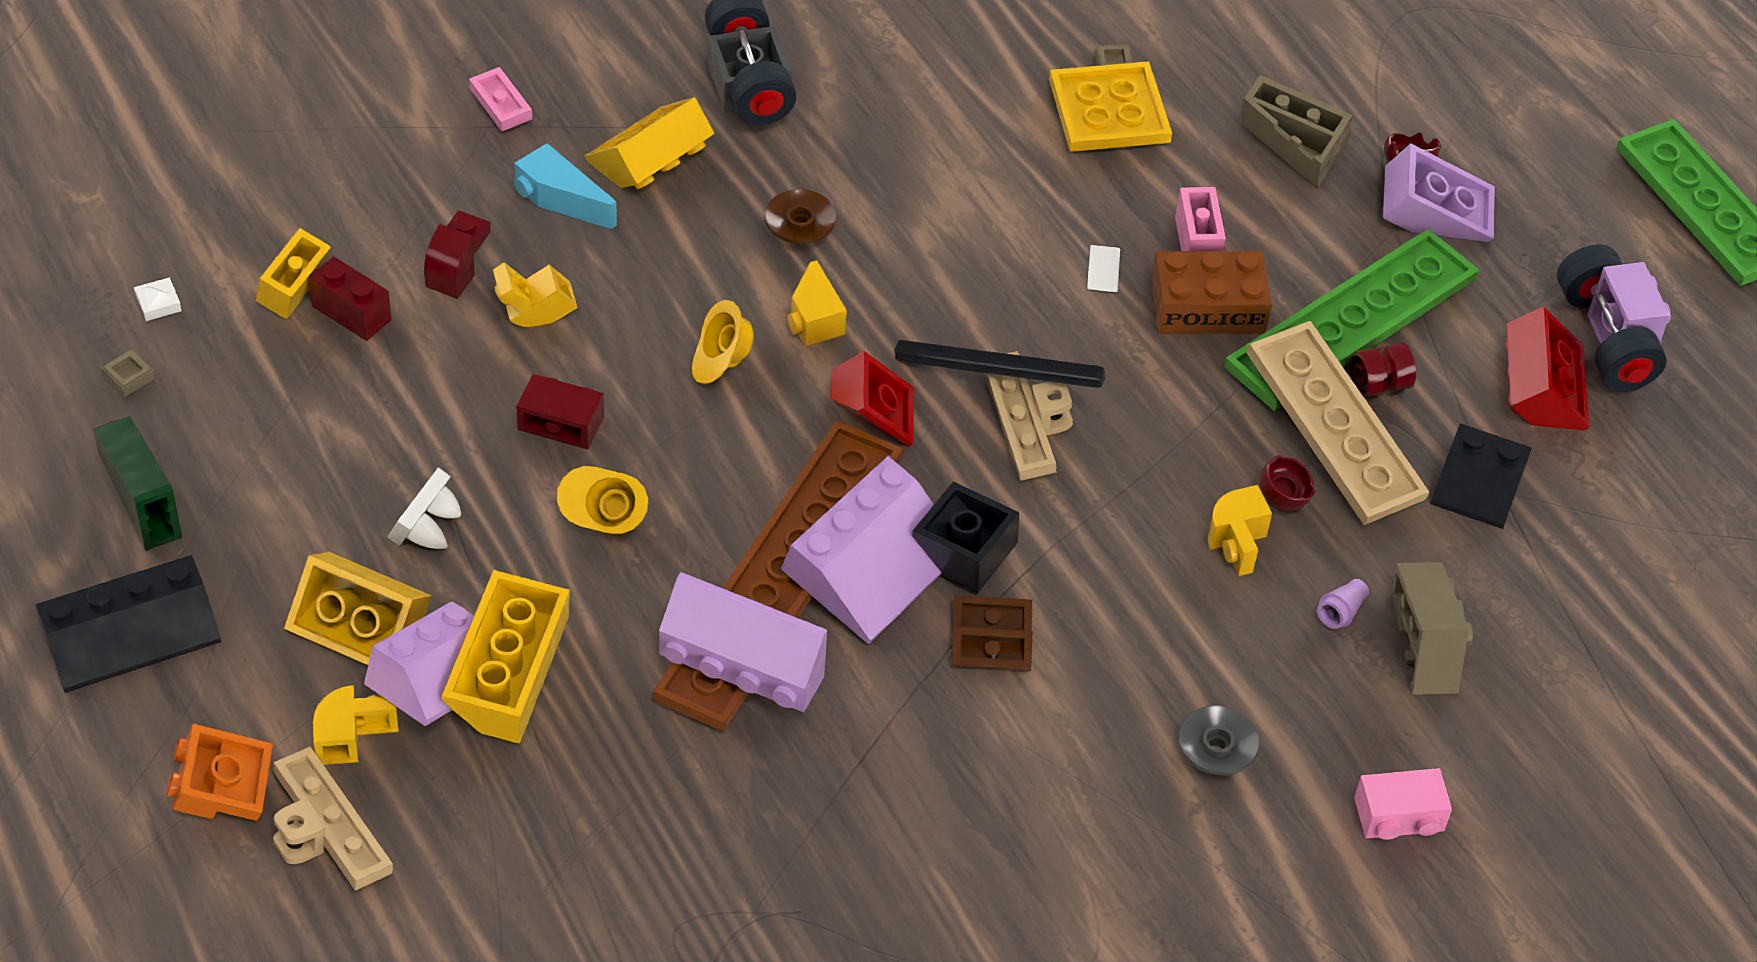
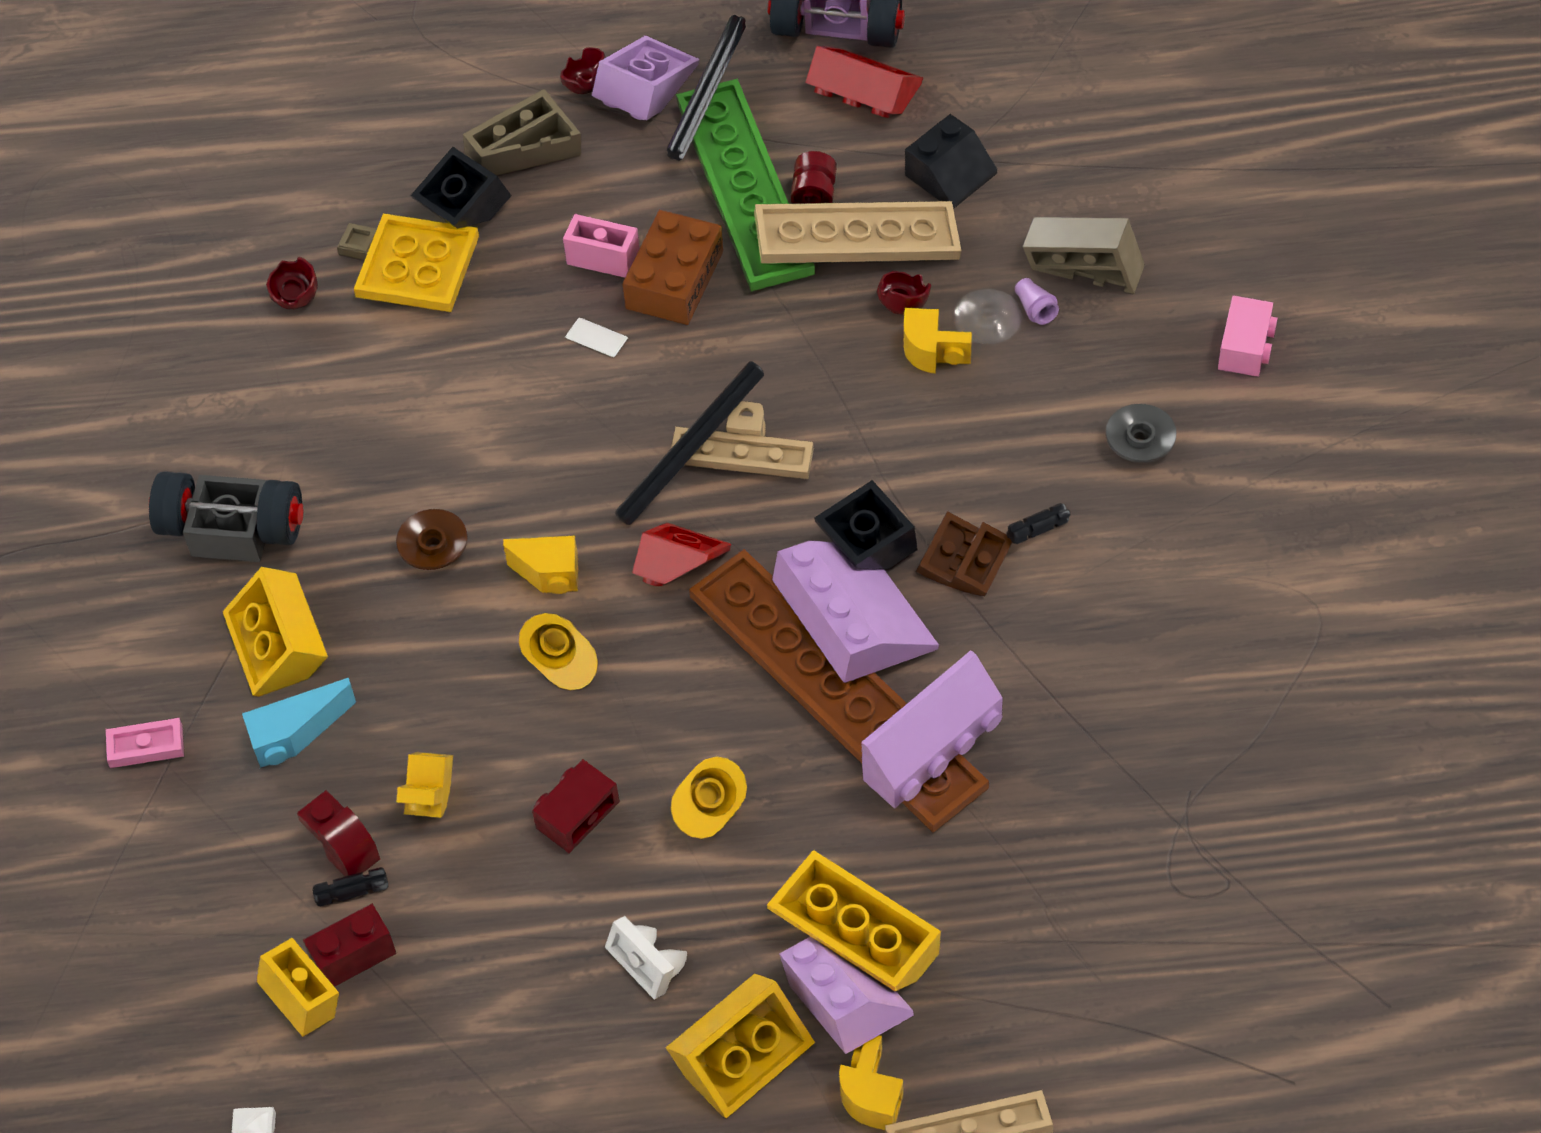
camera: 60 degrees left, 5 degrees up
(416, 284) = (350, 886): none -> black axle
(1031, 27) = (292, 284): none -> dark red hair
(1057, 682) = (1038, 523): none -> black axle
(1204, 106) = (461, 191): none -> black slope
(1301, 582) = (988, 315): none -> clear dish
(1447, 245) = (706, 88): none -> black axle

